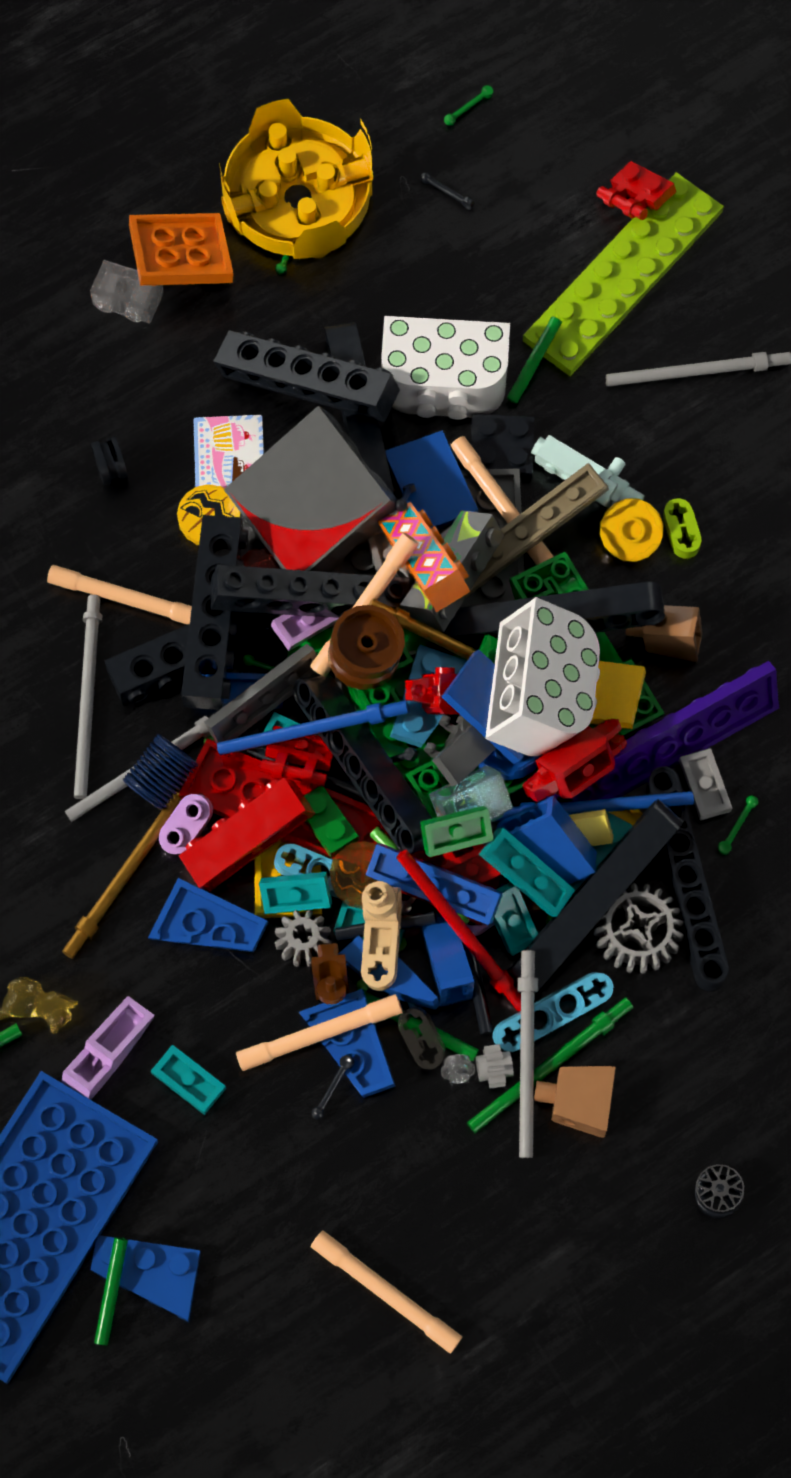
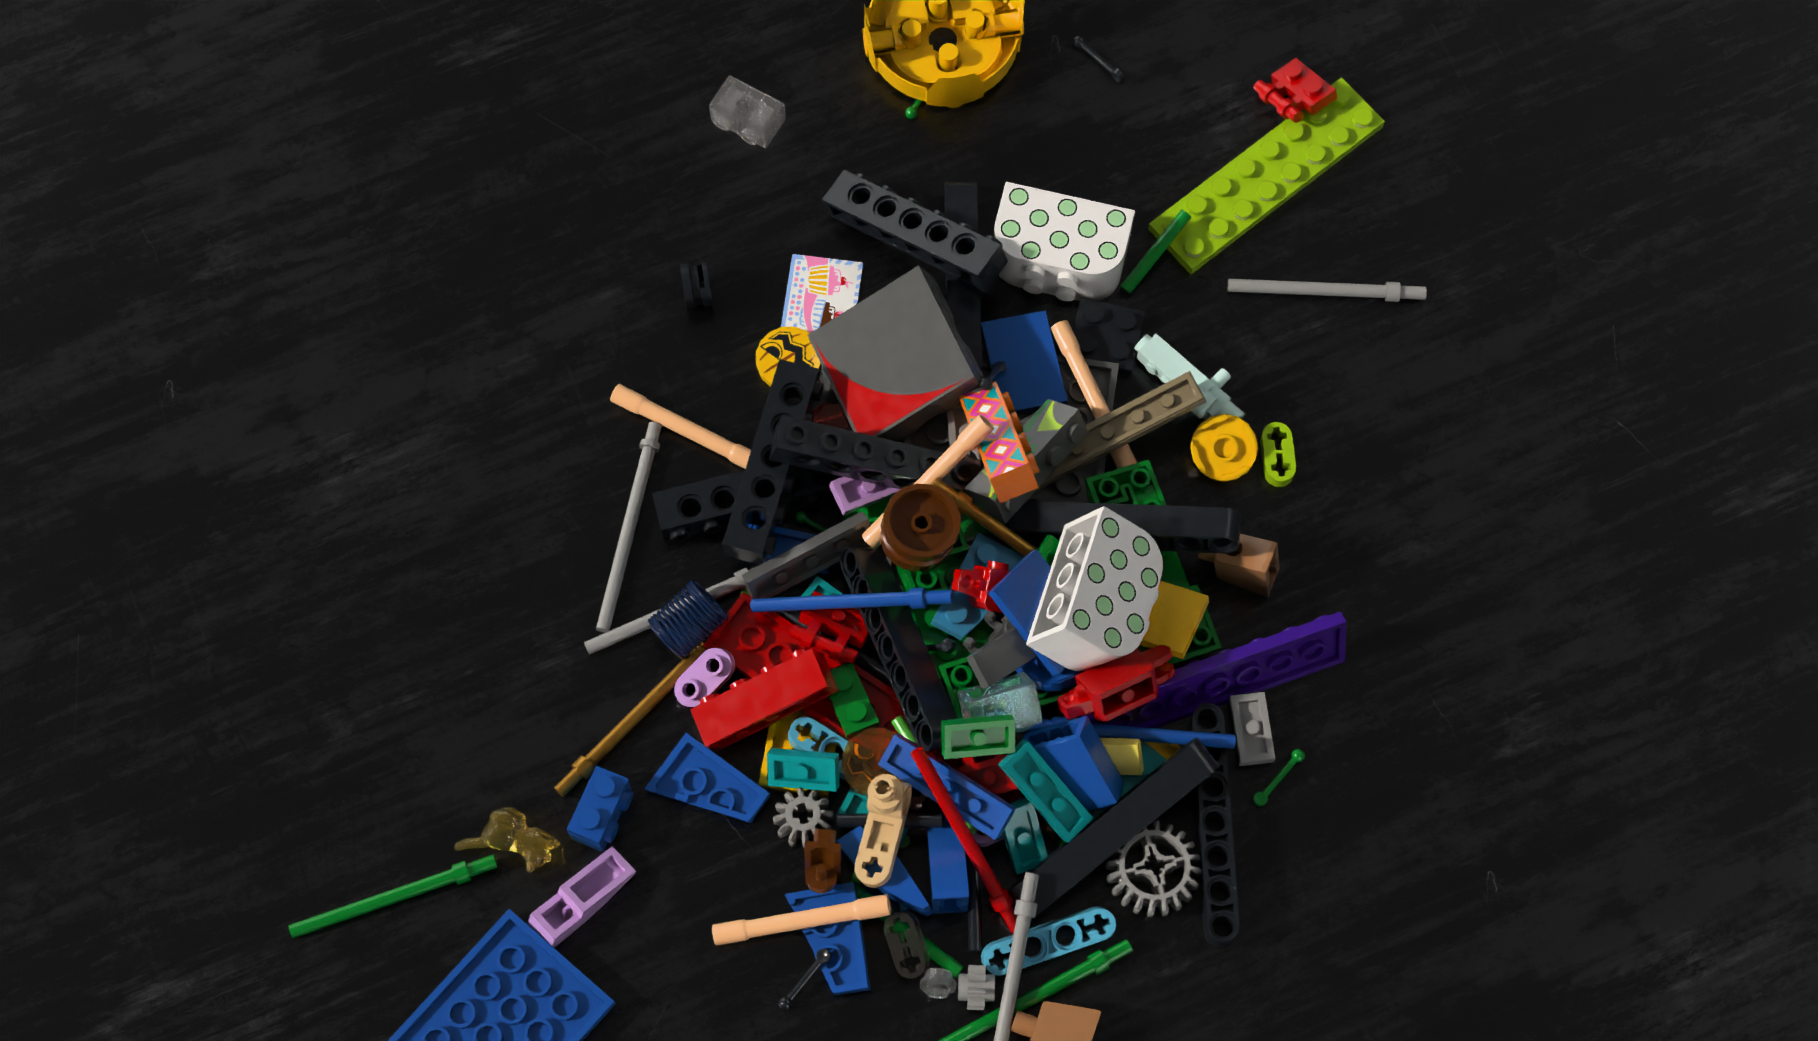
camera: 10 degrees right, 0 degrees up
(109, 963) = (600, 808): none -> blue brick
(180, 249) = (810, 76): orange plate -> none
(188, 1079) = (658, 944): teal plate -> none

